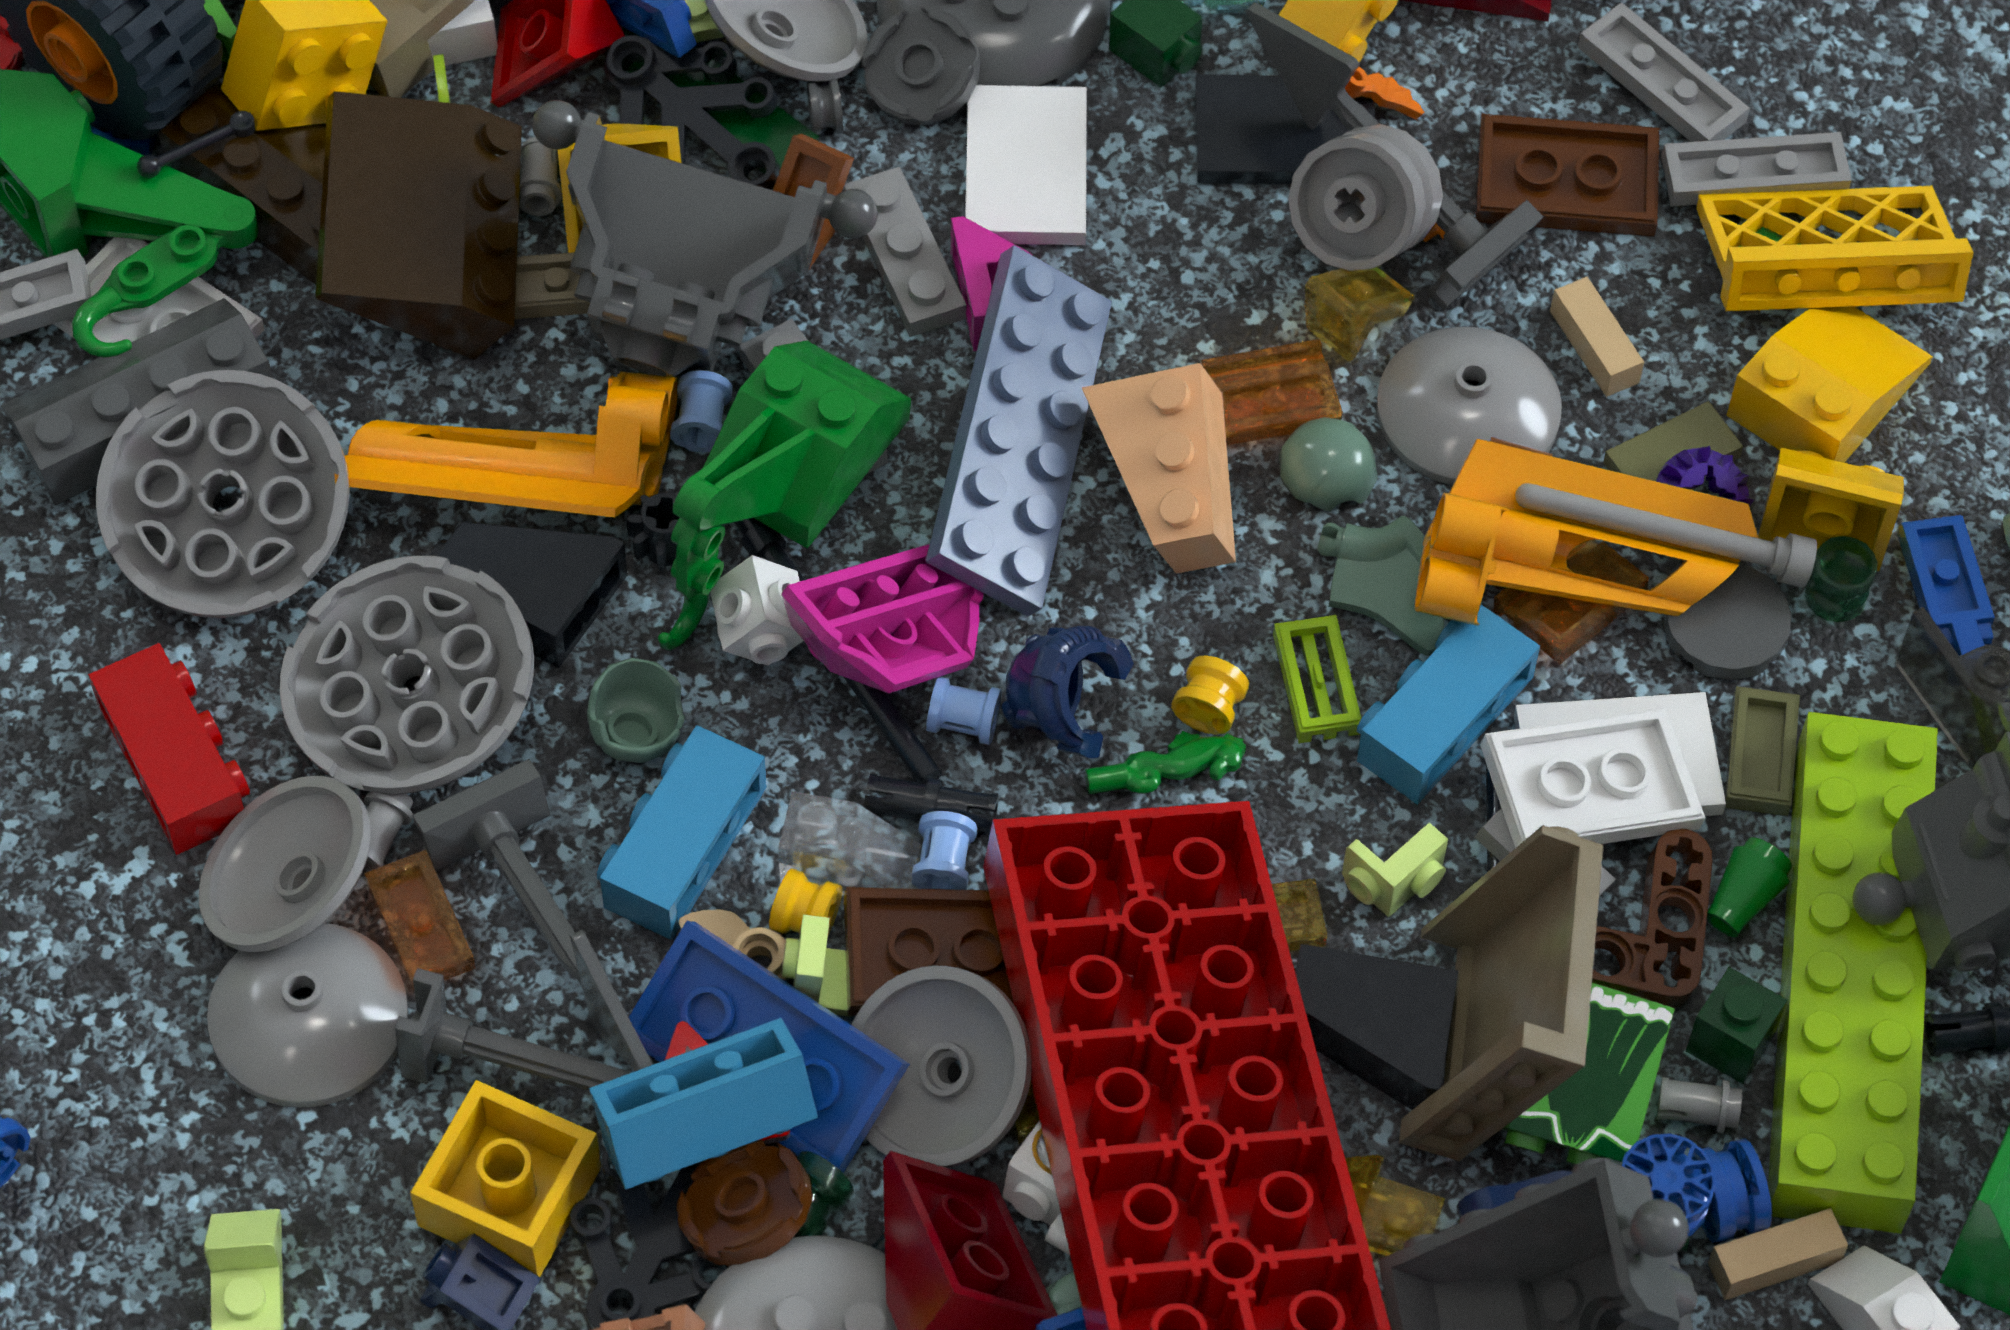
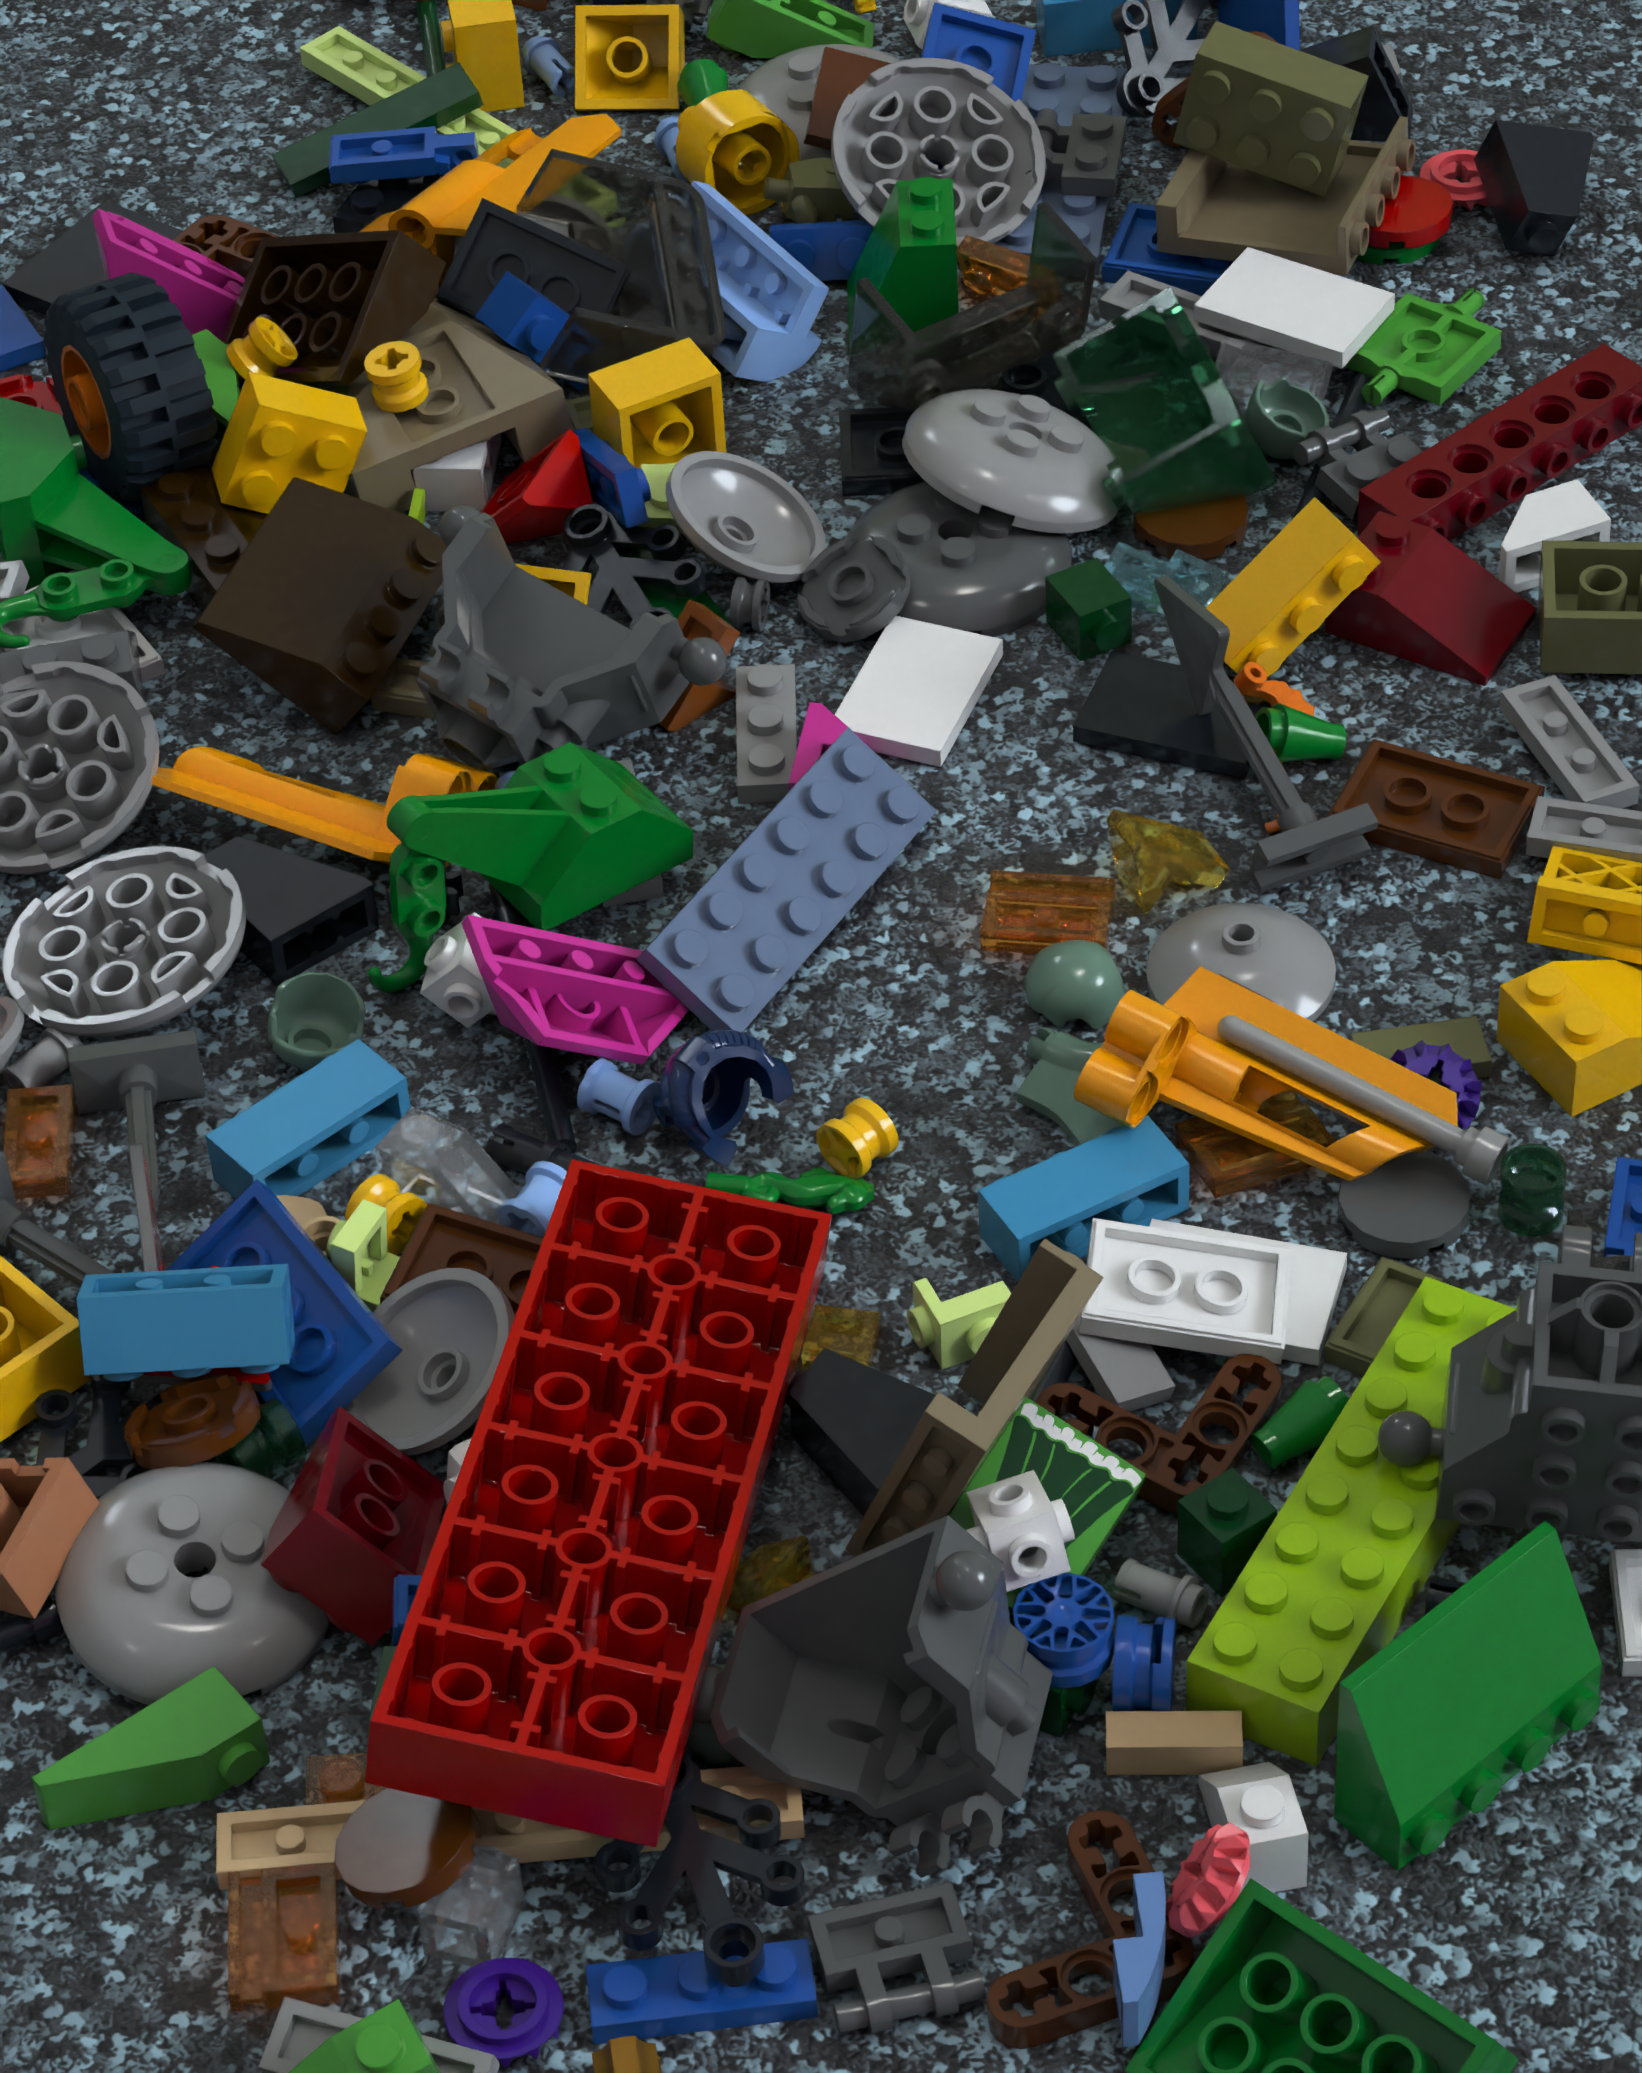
camera: 25 degrees right, 15 degrees down
(240, 125) = (206, 492): black hinge -> none
(1173, 459) = (916, 938): light nougat wedge -> none
(1326, 722) = (967, 1191): lime tile -> none
(1365, 197) = (1205, 762): light grey wheel -> none
(1427, 125) = (1300, 735): none -> green cone
(1596, 336) = (1393, 941): tan piece -> none
(1602, 1111) = (1022, 1528): none -> white brick
(1831, 500) = (1550, 1111): yellow slope -> none

